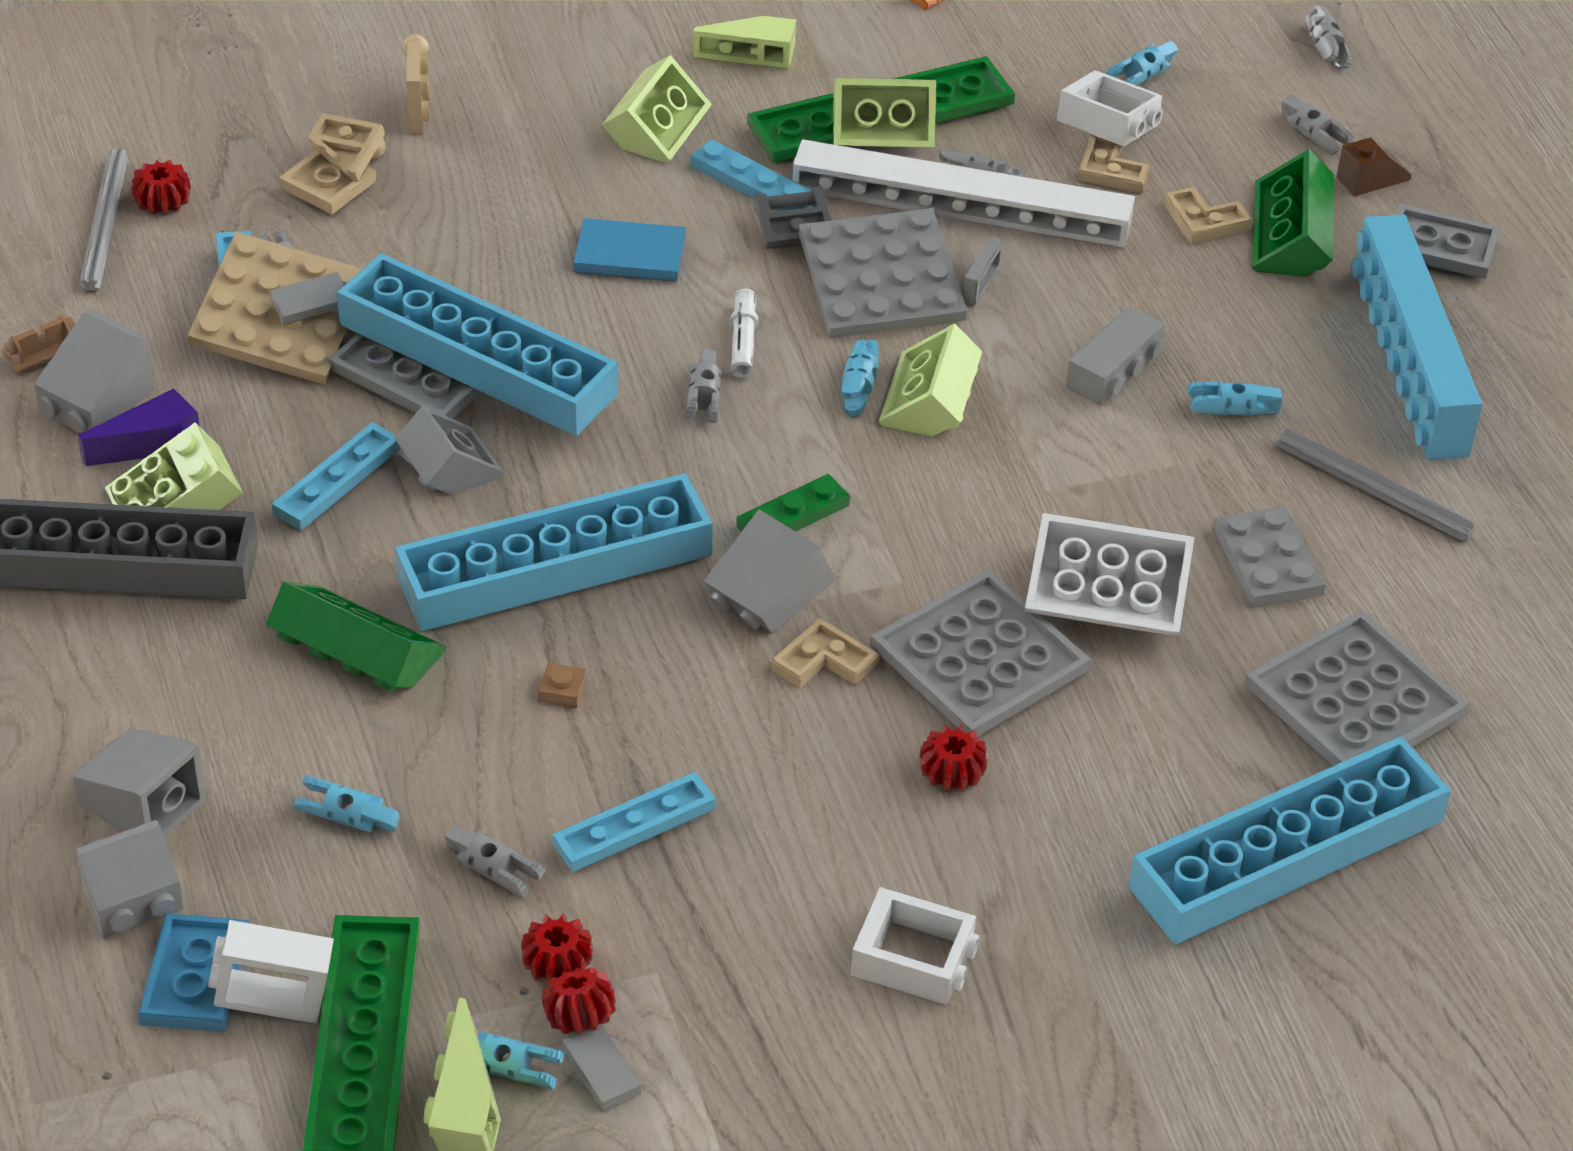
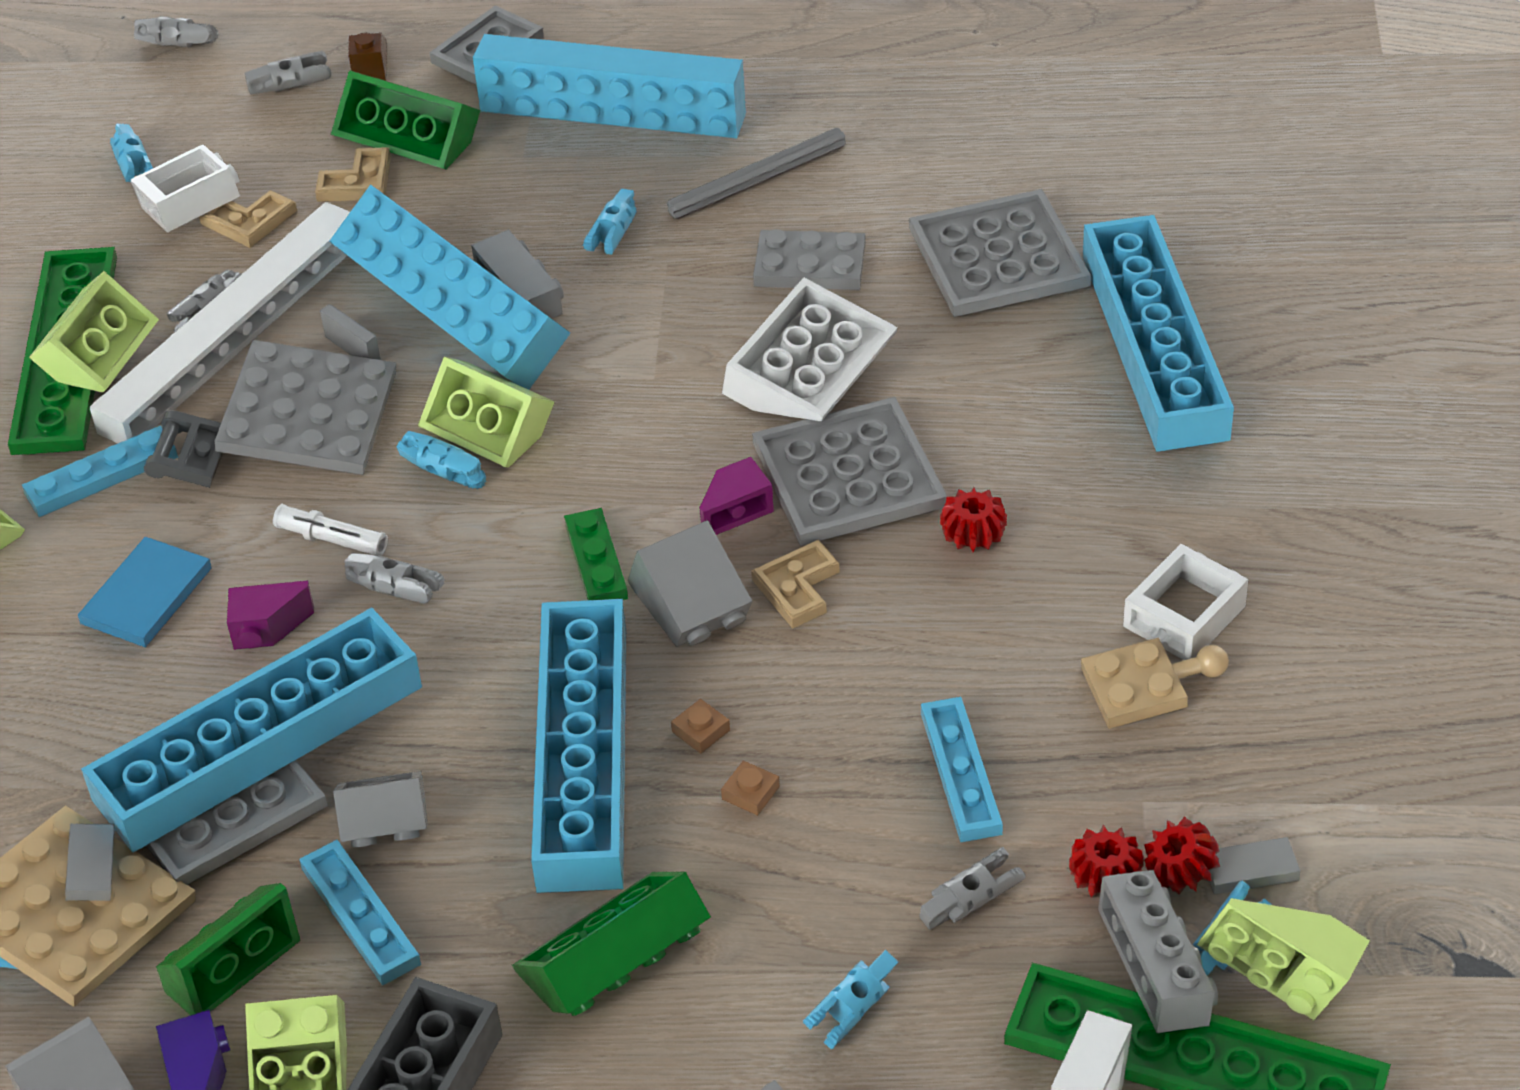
camera: 65 degrees left, 0 degrees up
(265, 411) = (230, 950): none -> green slope
(417, 1007) = (1157, 951): none -> light grey brick
(620, 633) = (700, 725): none -> medium nougat plate
(627, 322) = (266, 612): none -> magenta slope
(804, 932) = (1143, 682): none -> tan plate
(900, 578) = (737, 496): none -> magenta slope
(1062, 308) = (450, 288): none -> medium azure brick

